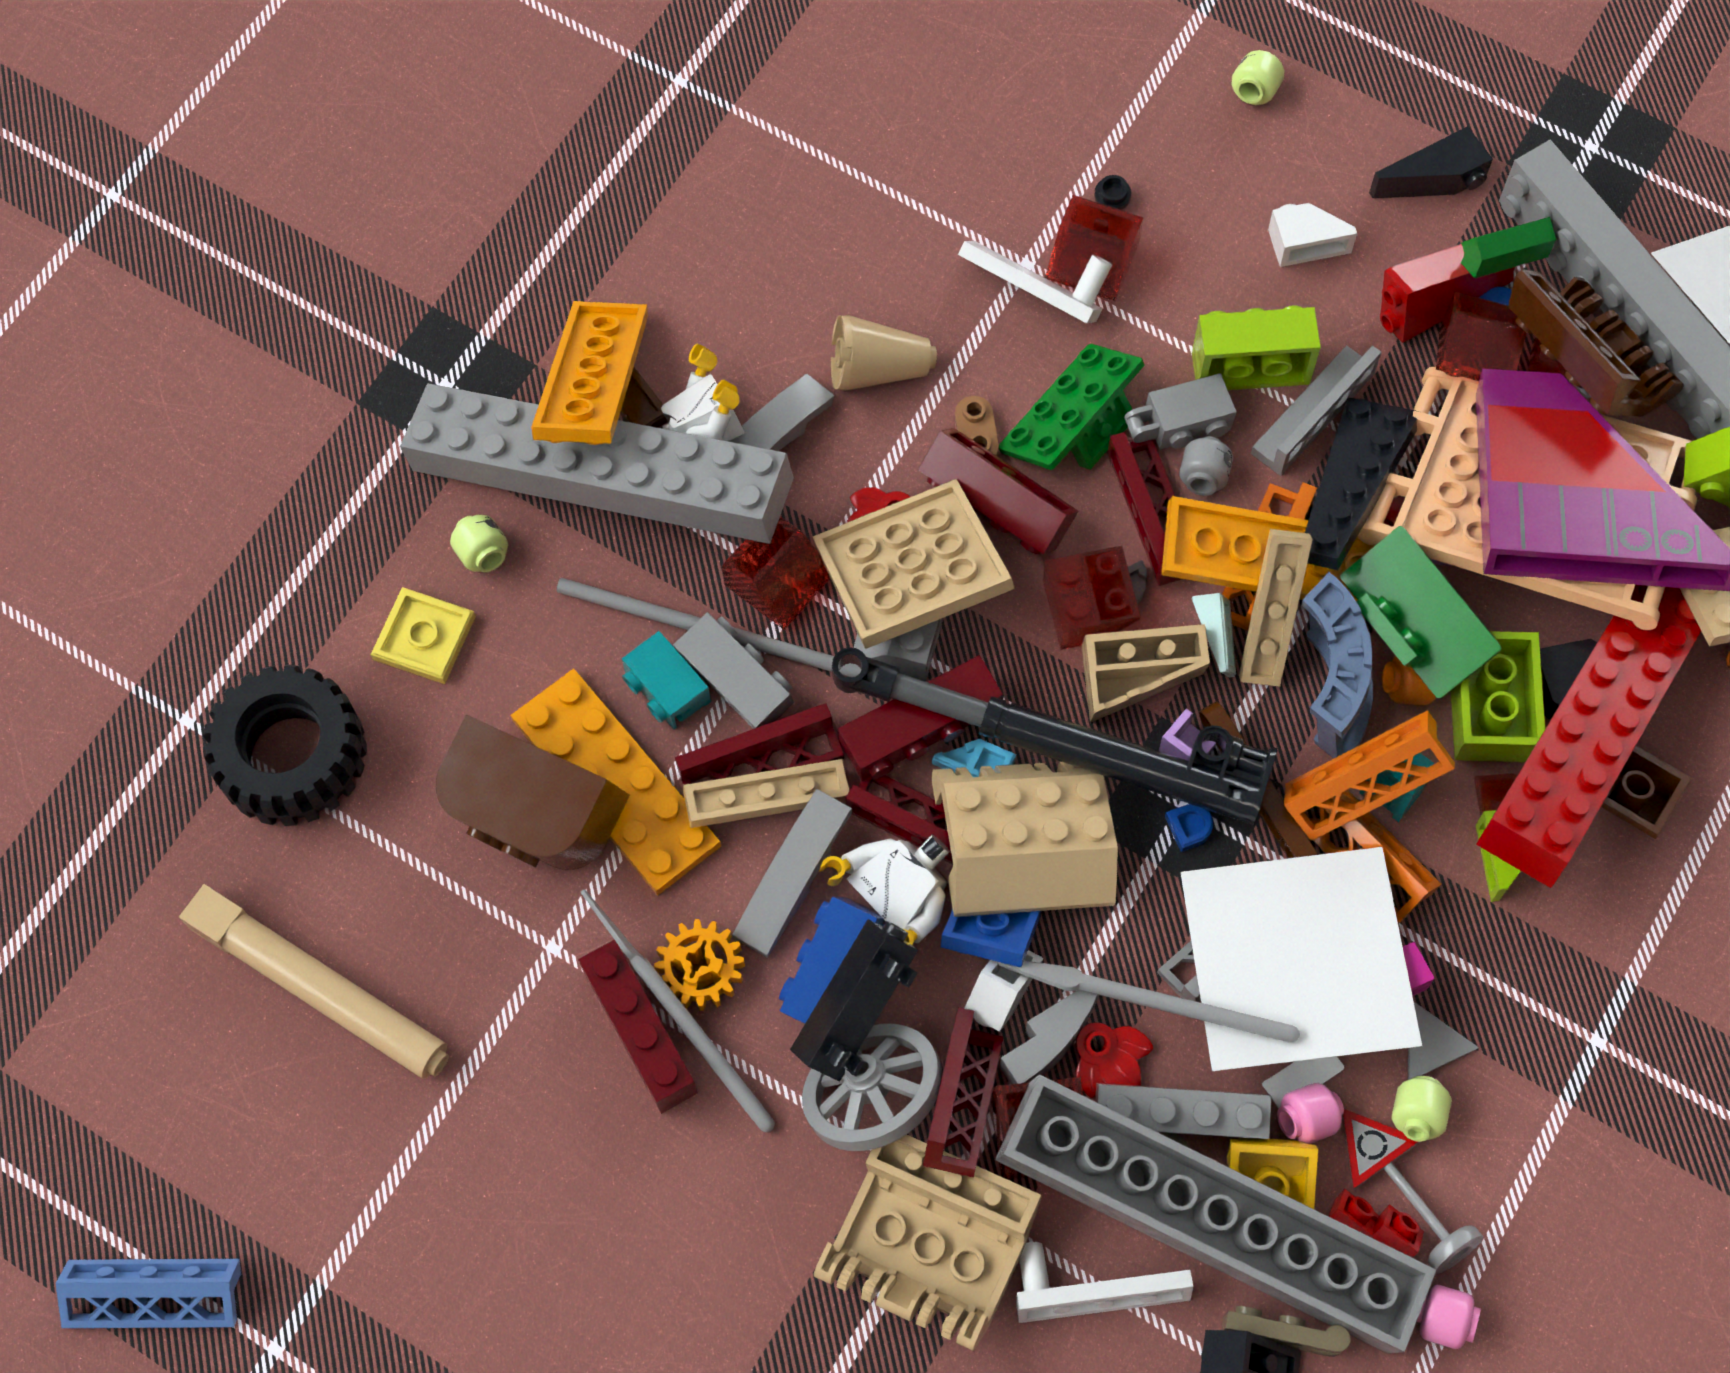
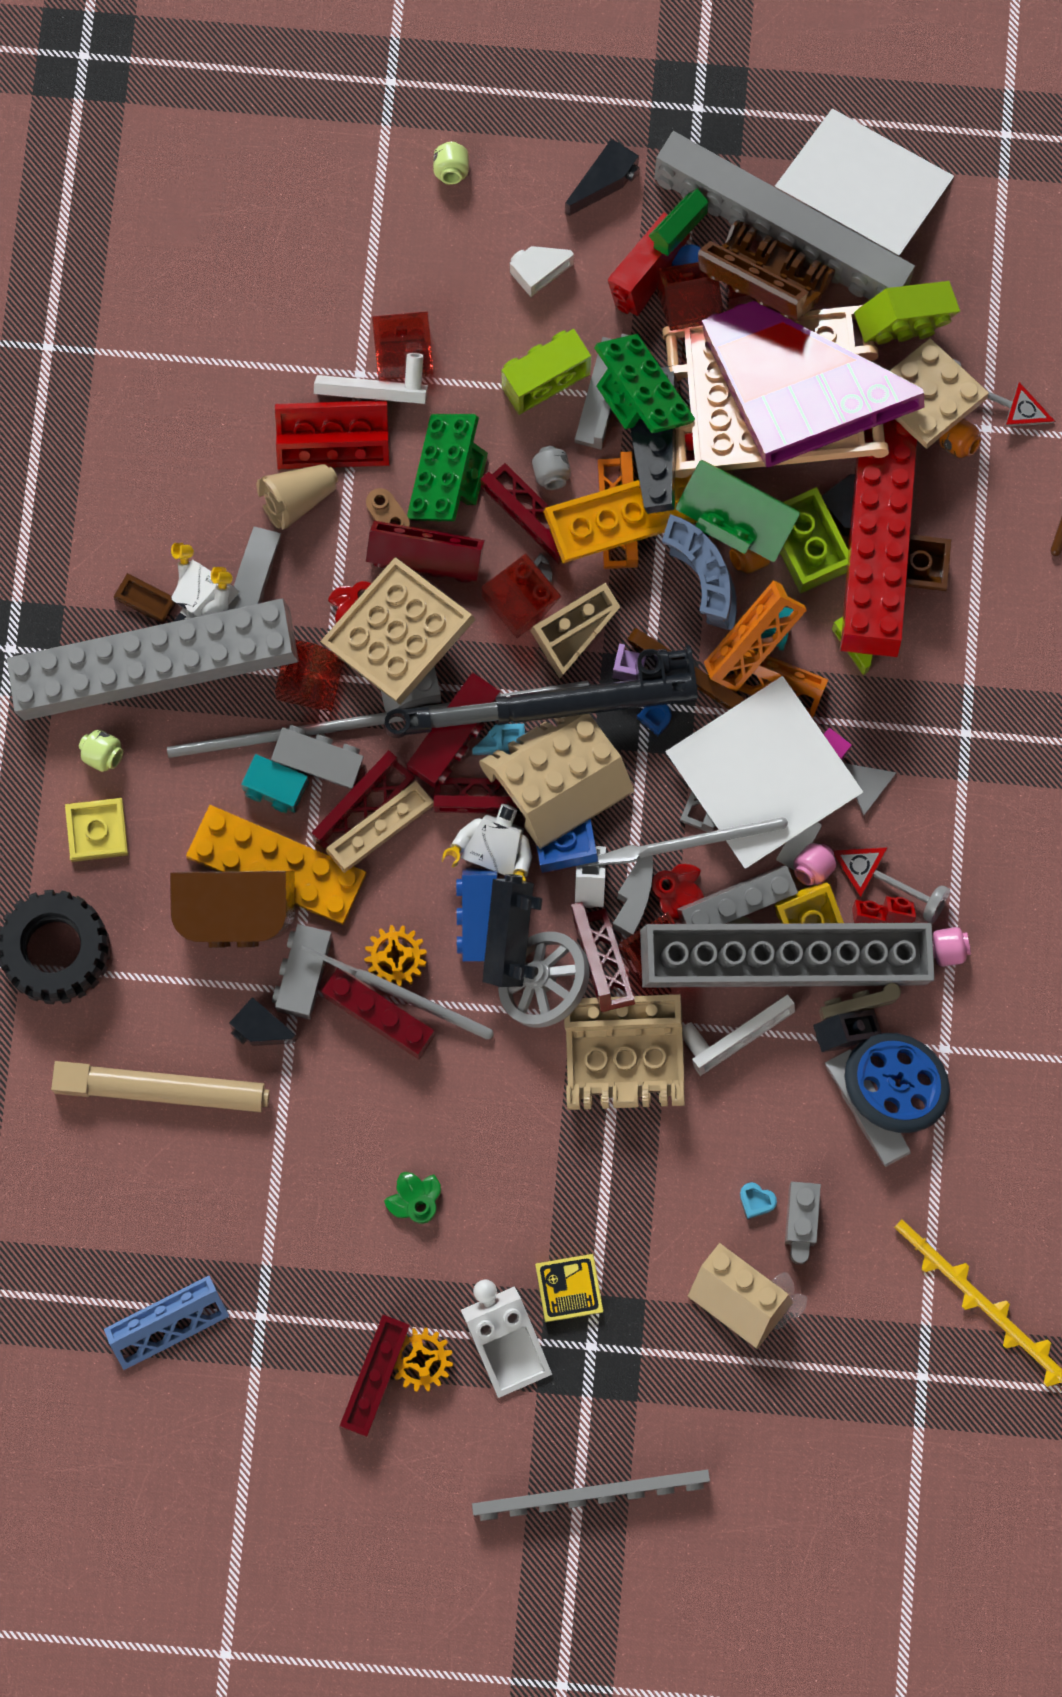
camera: 30 degrees left, 10 degrees up
(480, 968) = (259, 1026): none -> black slope
(556, 1287) = (413, 1193): none -> green plate
(571, 926) = (302, 972): none -> light grey brick
(590, 373) = (116, 599): light orange plate -> none
(791, 873) = (423, 870): light grey slope -> none
(958, 312) = (332, 434): none -> red slope
(1113, 192) = (393, 296): black plate -> none
(1184, 413) = (520, 437): light grey brick -> none
(1215, 613) = (608, 572): light aqua slope -> none
(1275, 607) = (644, 550): tan plate -> none
(1363, 409) = (638, 386): none -> green bracket
(1421, 1108) = (879, 828): yellowish green head -> none
(1492, 790) = (833, 602): clear red slope -> none

